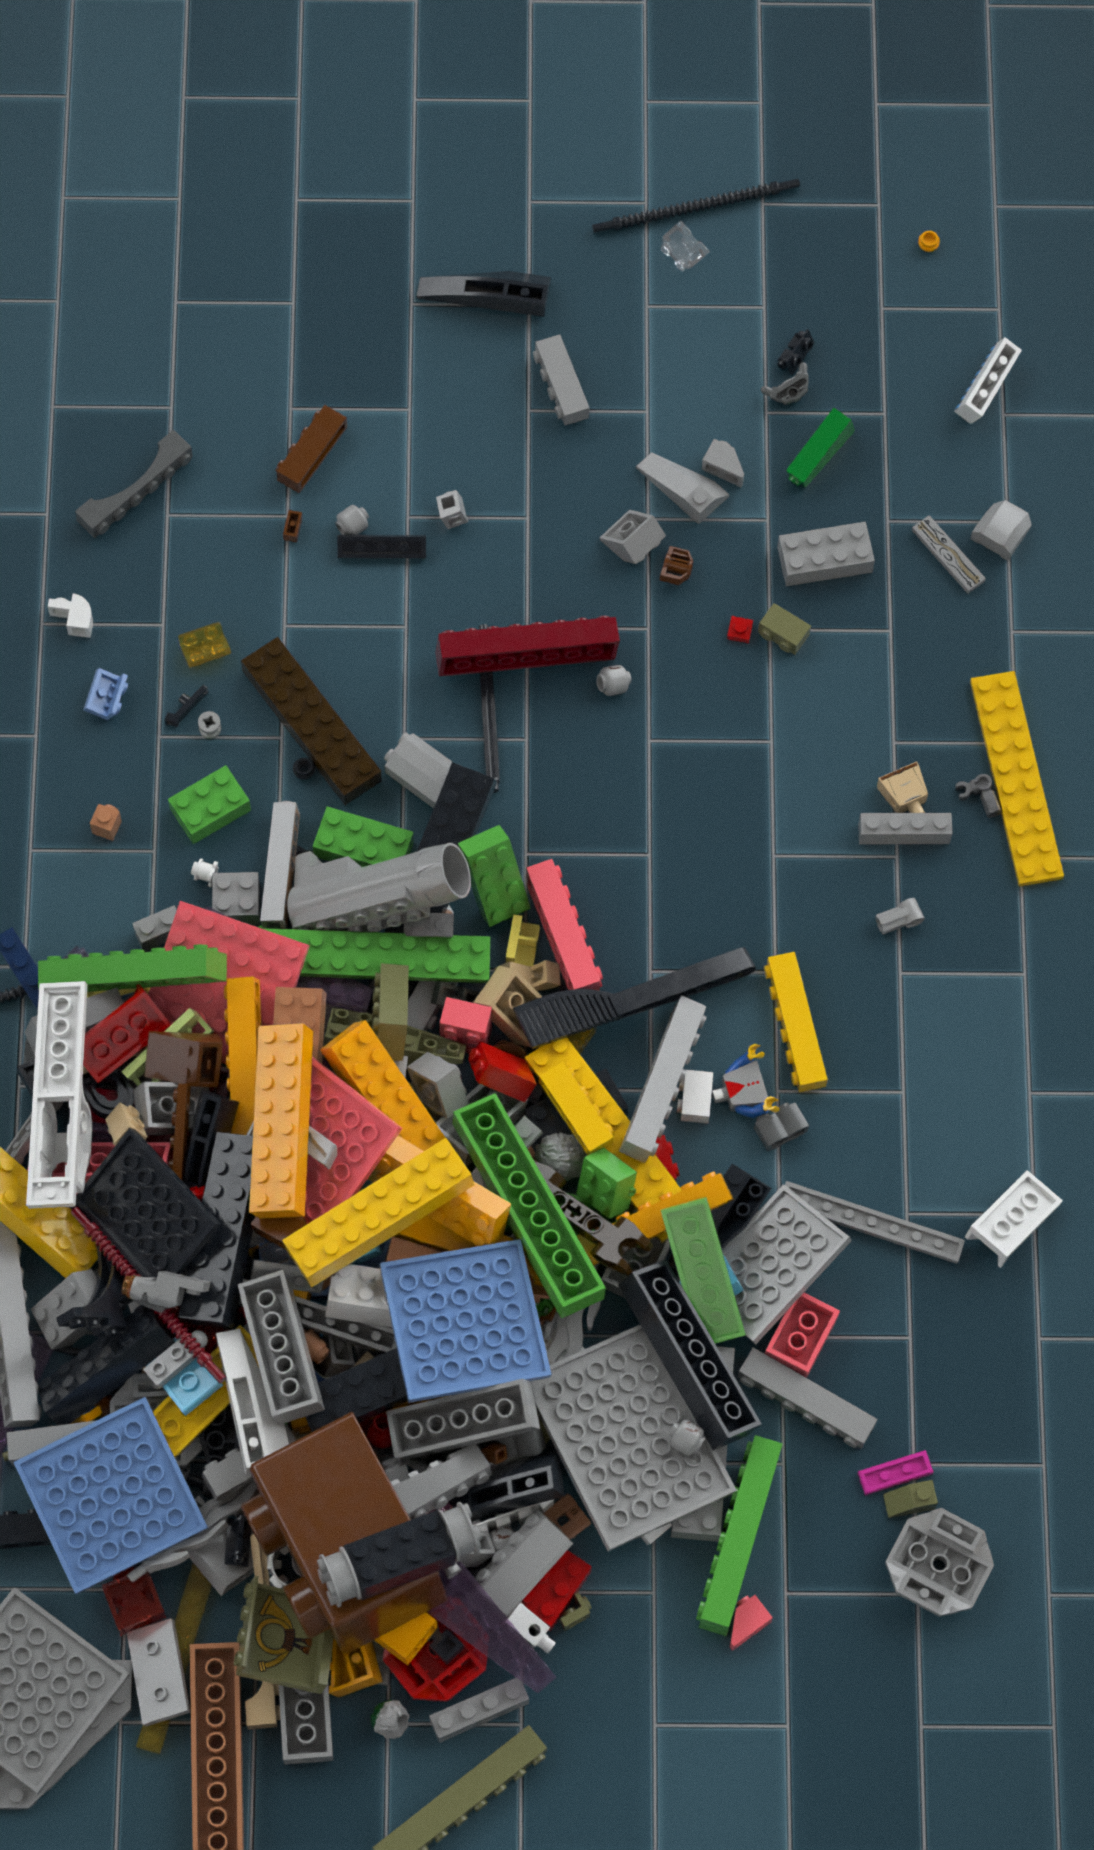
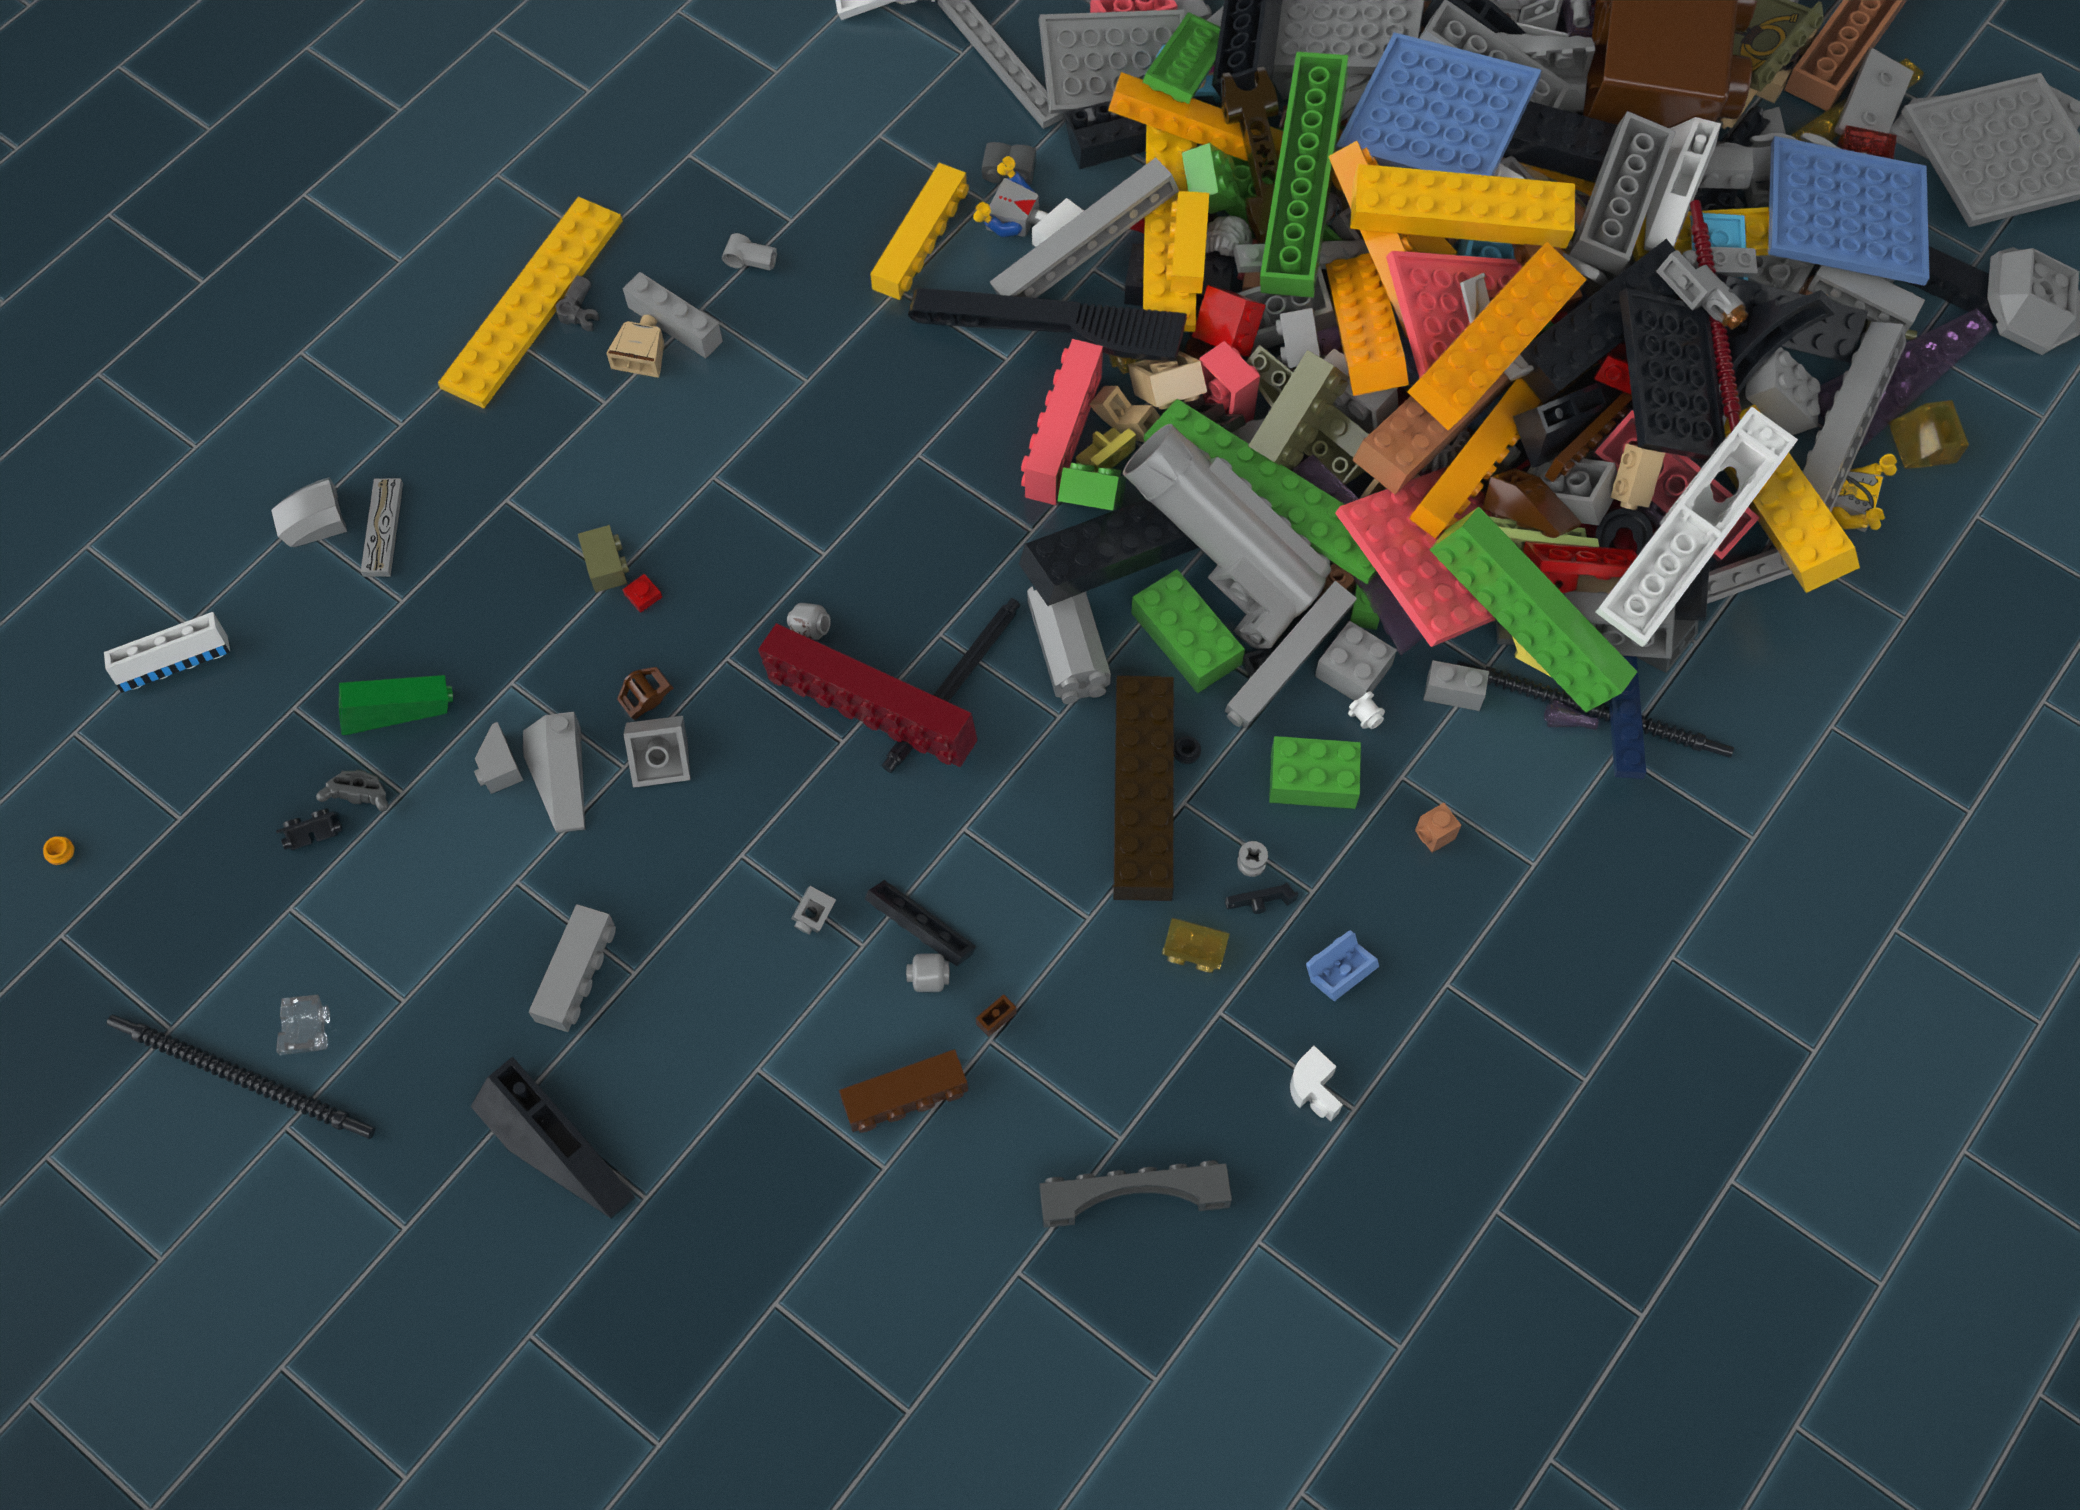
camera: 140 degrees left, 5 degrees down
(825, 553) = (493, 599): light grey brick -> none

